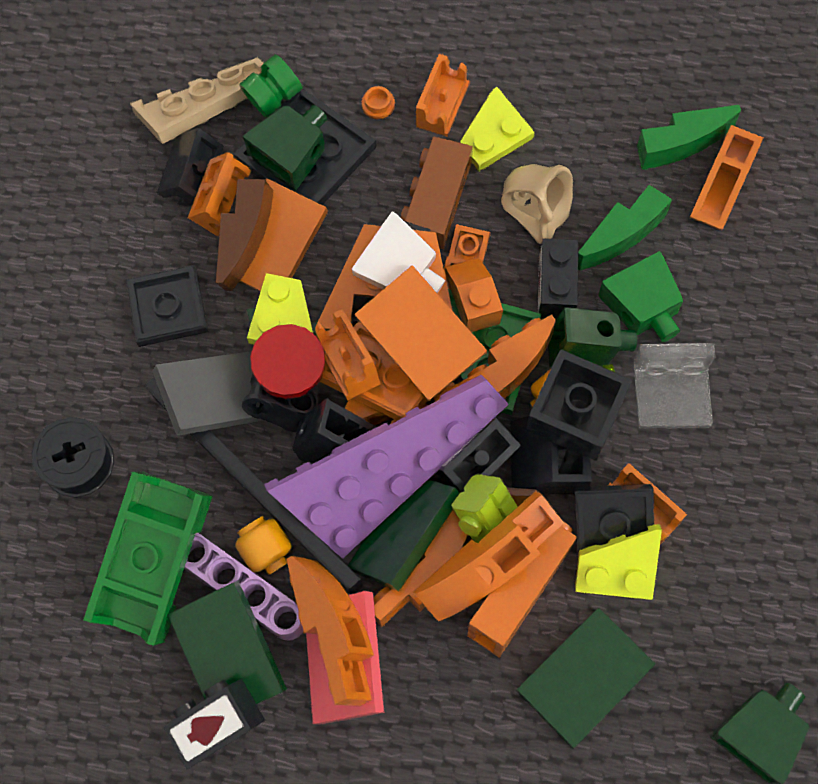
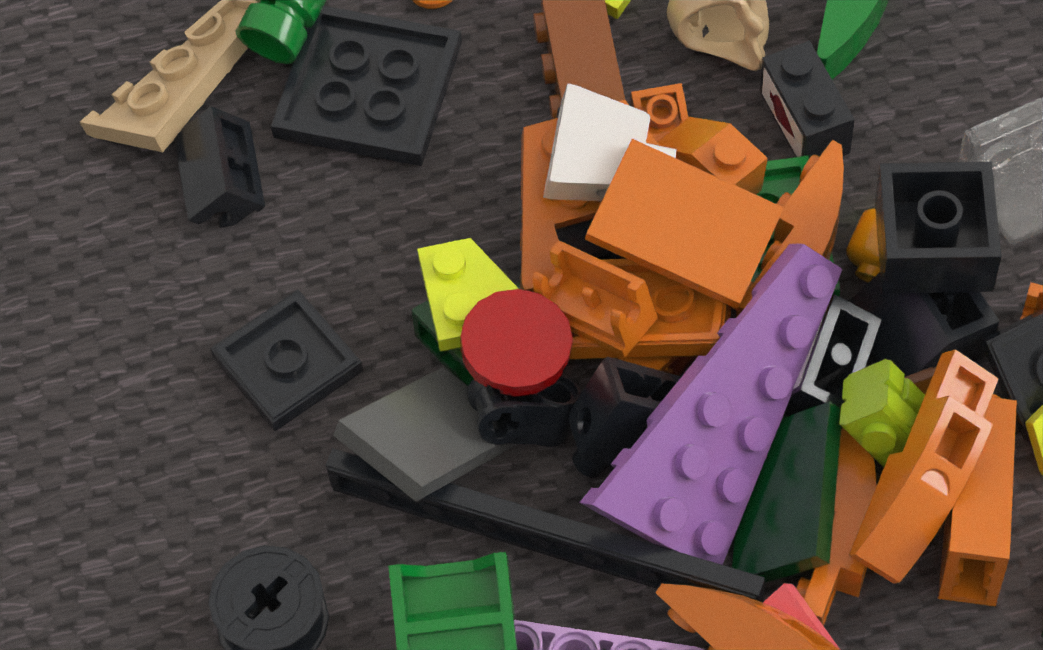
camera: 25 degrees left, 10 degrees down
(217, 191) = (276, 184): orange hinge -> none
(242, 231) = (350, 210): reddish brown slope -> none
(263, 545) = (604, 600): light orange head -> none
(287, 235) = (387, 210): orange tile -> none
(288, 143) = (346, 78): dark green torso -> none
(590, 336) = (886, 138): dark green torso -> none
(645, 297) = (929, 81): green torso -> none

